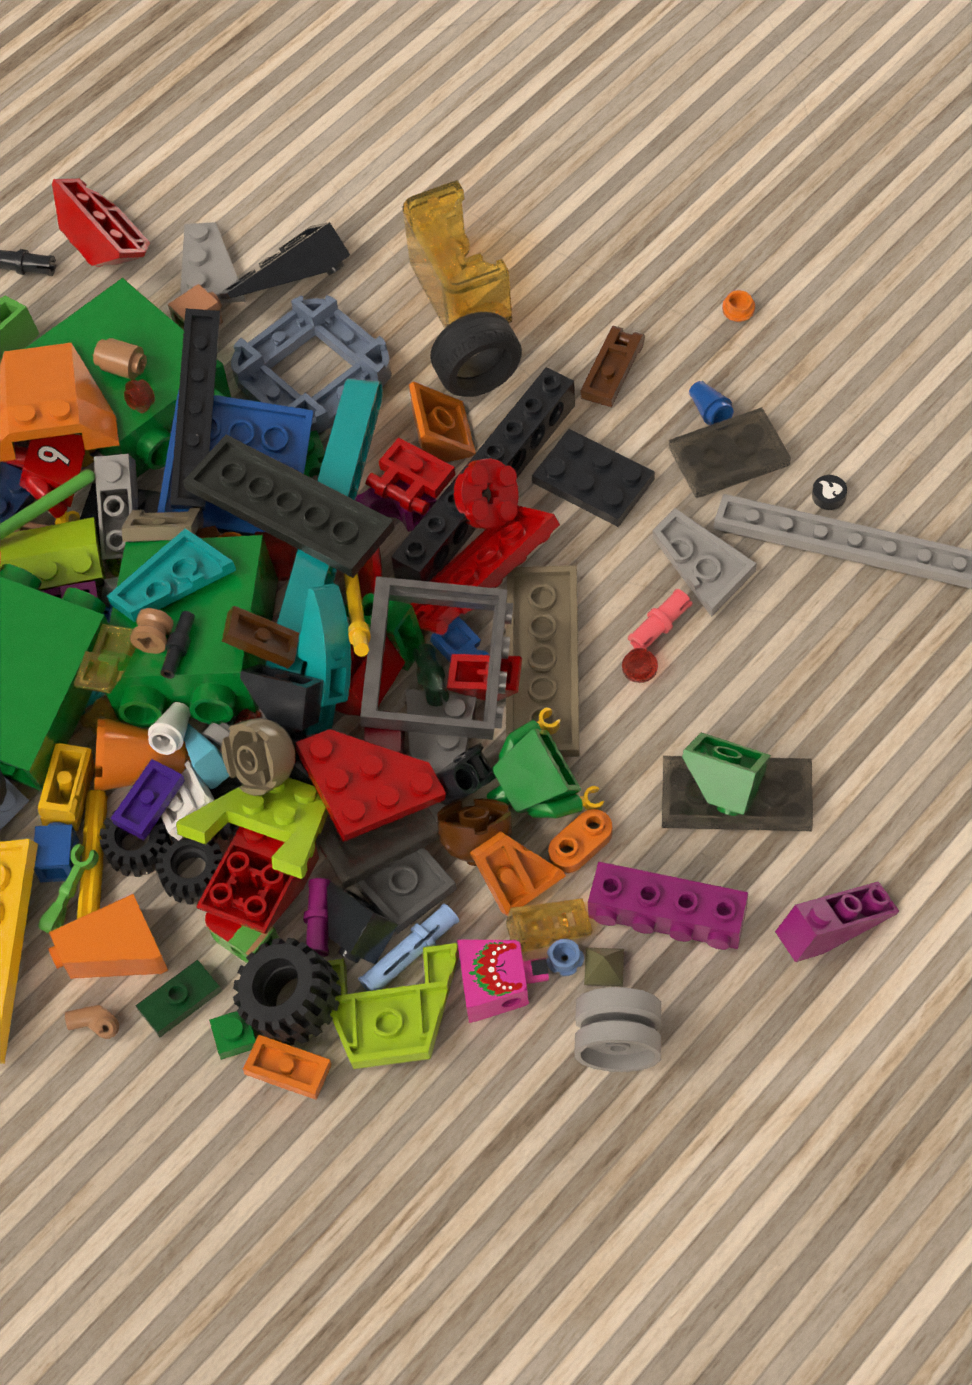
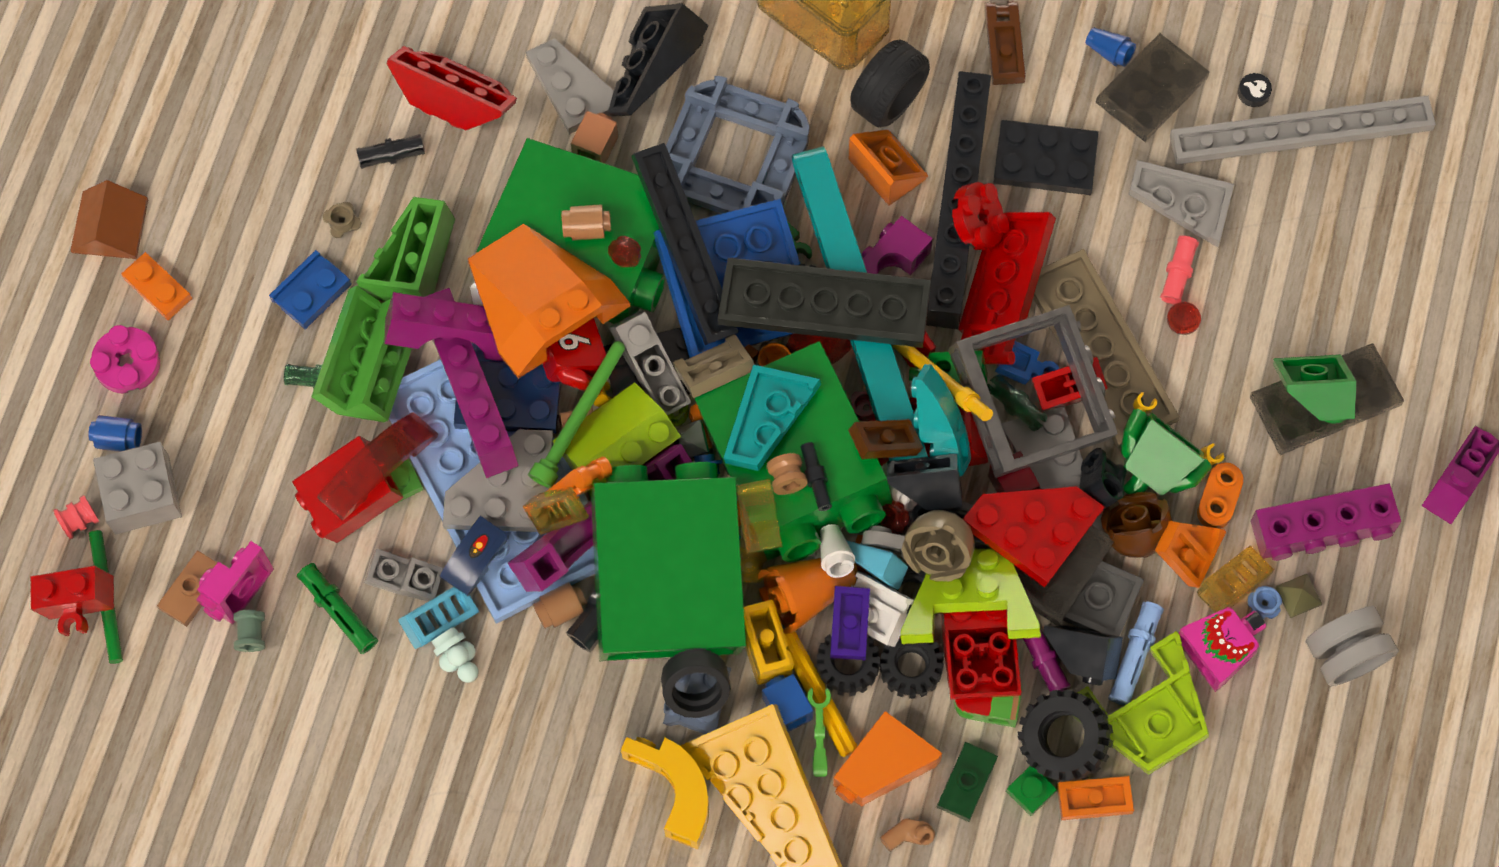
camera: 30 degrees left, 10 degrees up
(414, 467) = (902, 217): red plate -> none

